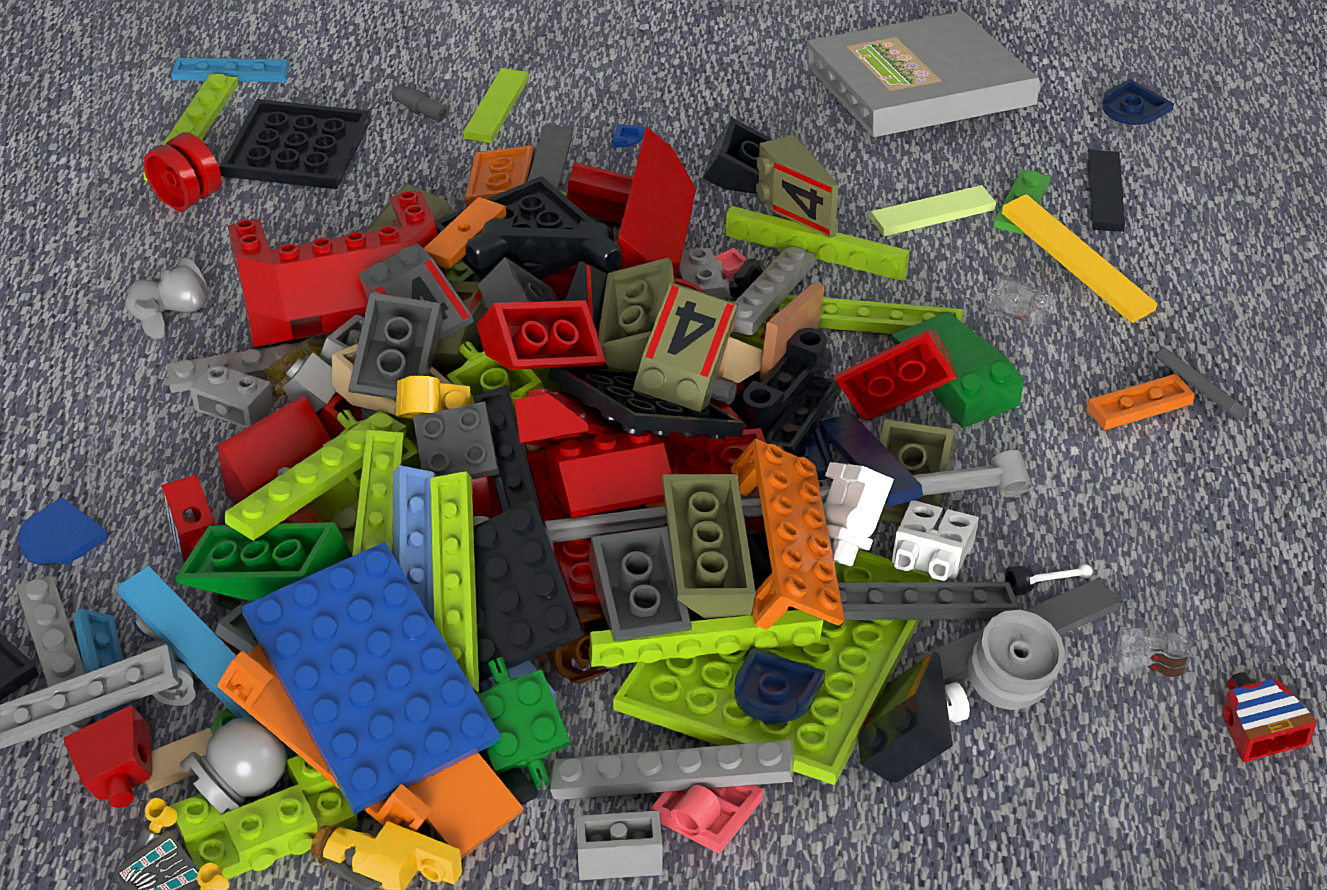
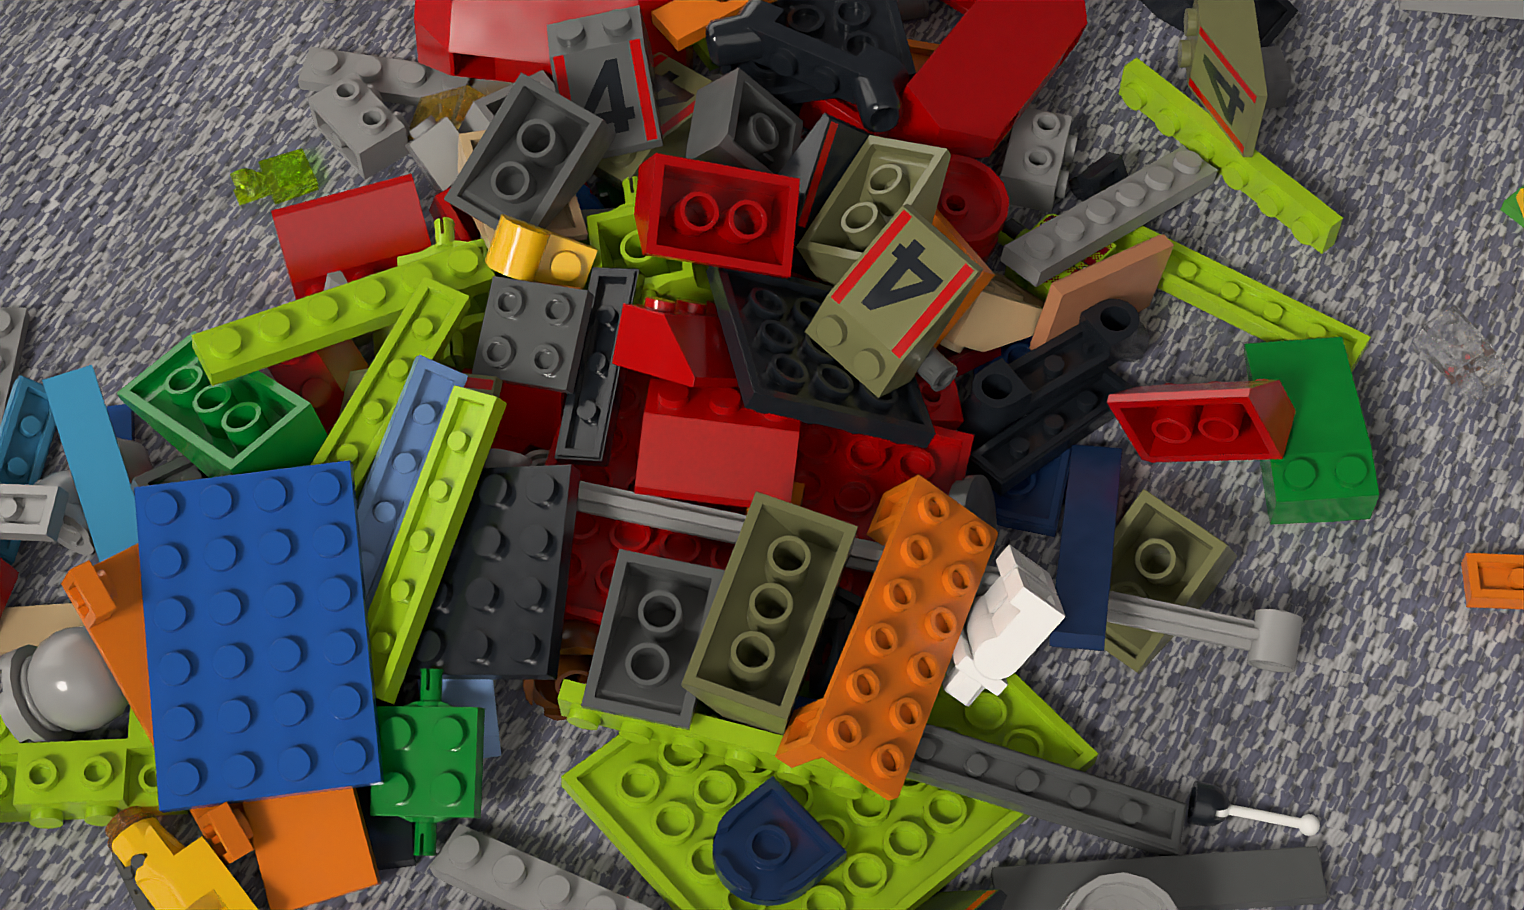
camera: 25 degrees right, 15 degrees up
(59, 534) = (65, 251): blue tile -> none
(178, 498) = (206, 287): red torso -> none
(190, 444) = (279, 176): none -> clear neon green plate
(731, 262) = (1095, 141): coral tile -> none
(933, 210) = (1427, 153): yellowish green tile -> none
(933, 545) = (1112, 704): white hips -> none

